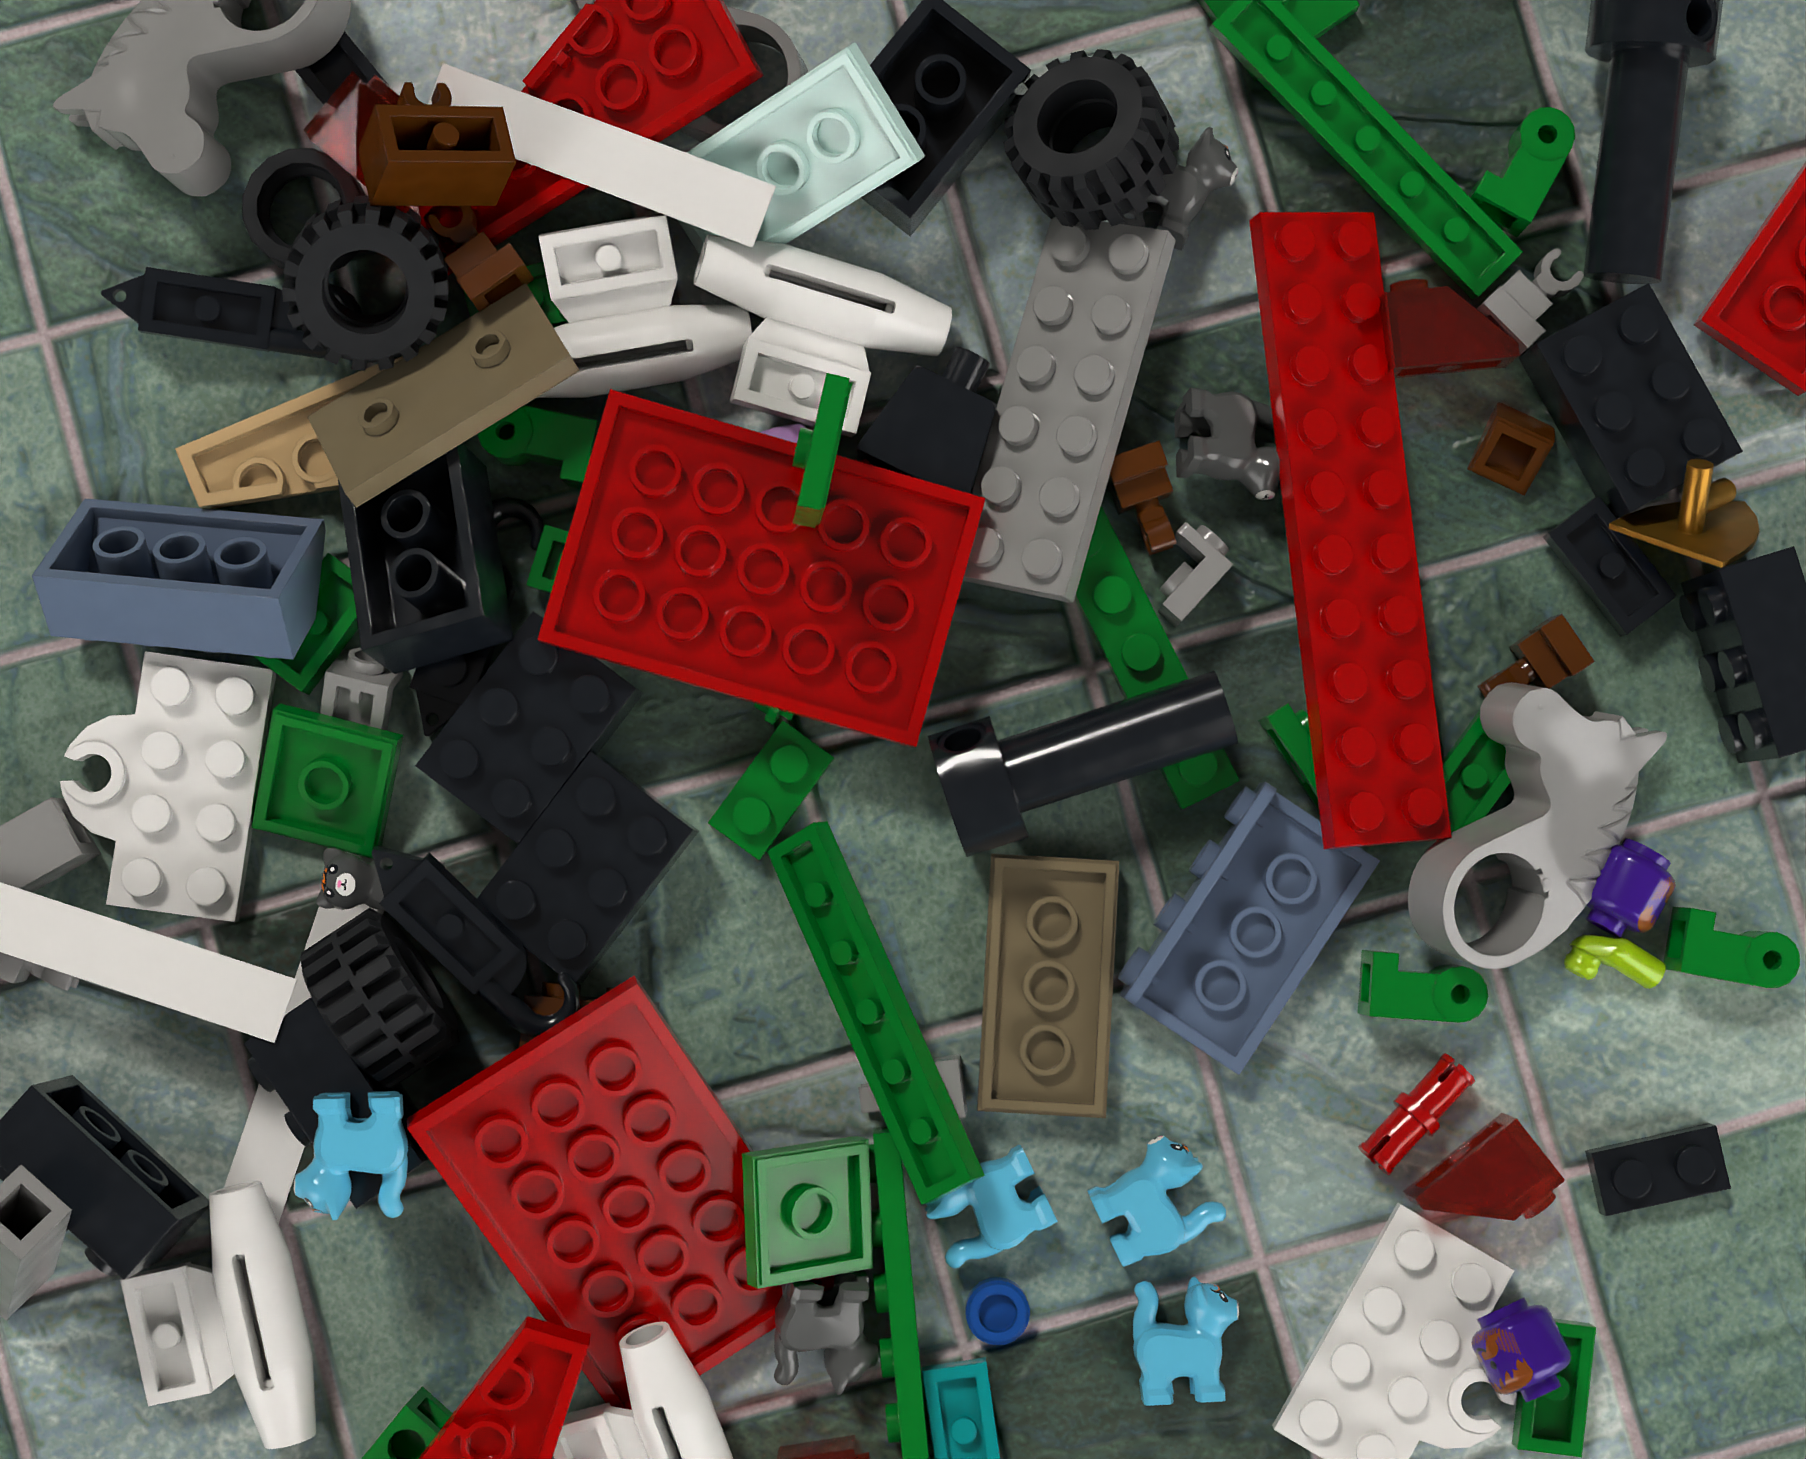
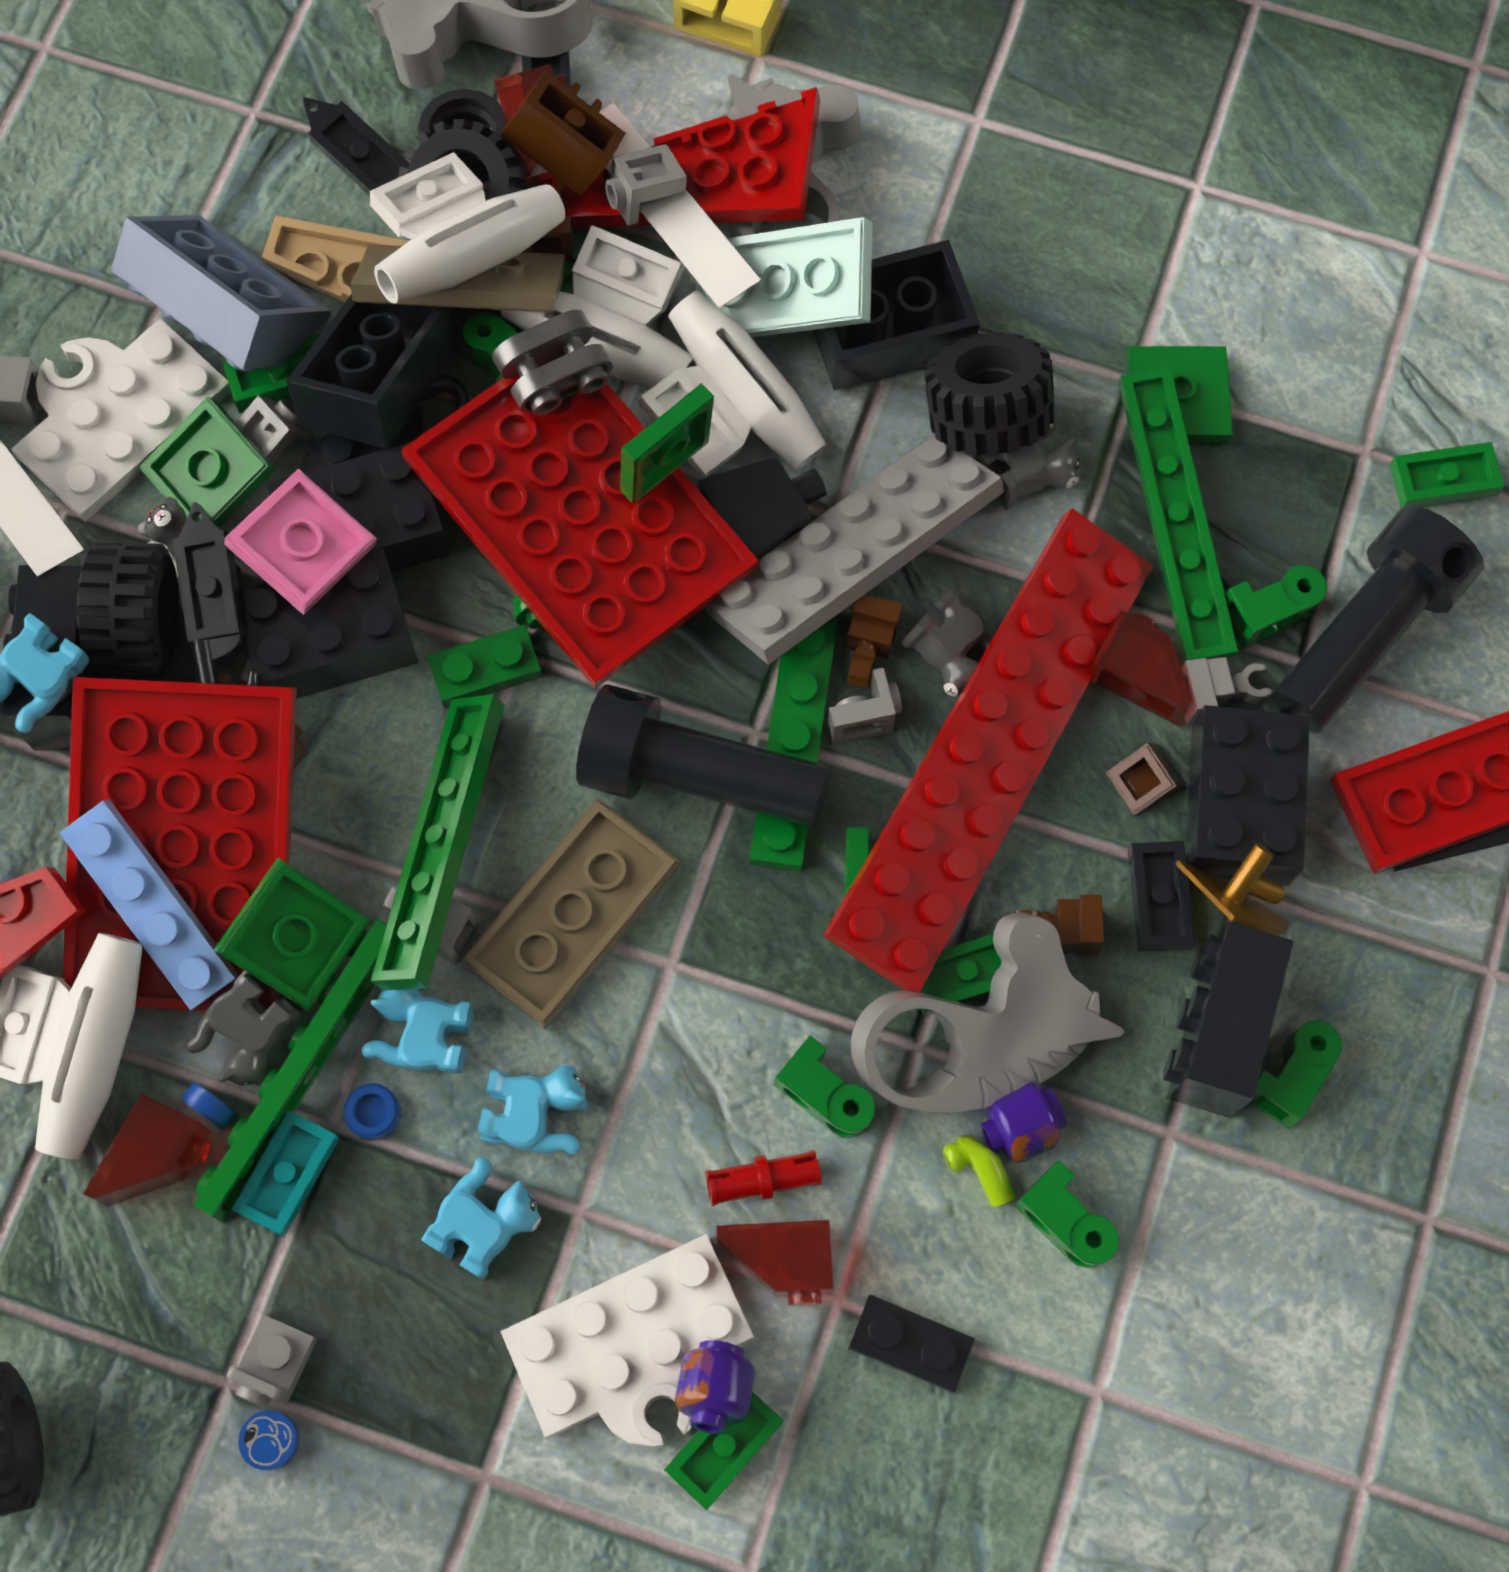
camera: 35 degrees right, 15 degrees down
(414, 354) = (454, 227): none -> white plate
(512, 813) = (300, 541): none -> bright pink tile
(560, 147) = (643, 178): none -> light grey bracket
(642, 1281) = (149, 903): none -> light blue plate
(667, 423) = (553, 362): none -> flat silver brick
(842, 1420) = (209, 1106): none -> blue tile
(1245, 927) = (733, 963): sand blue bracket -> none

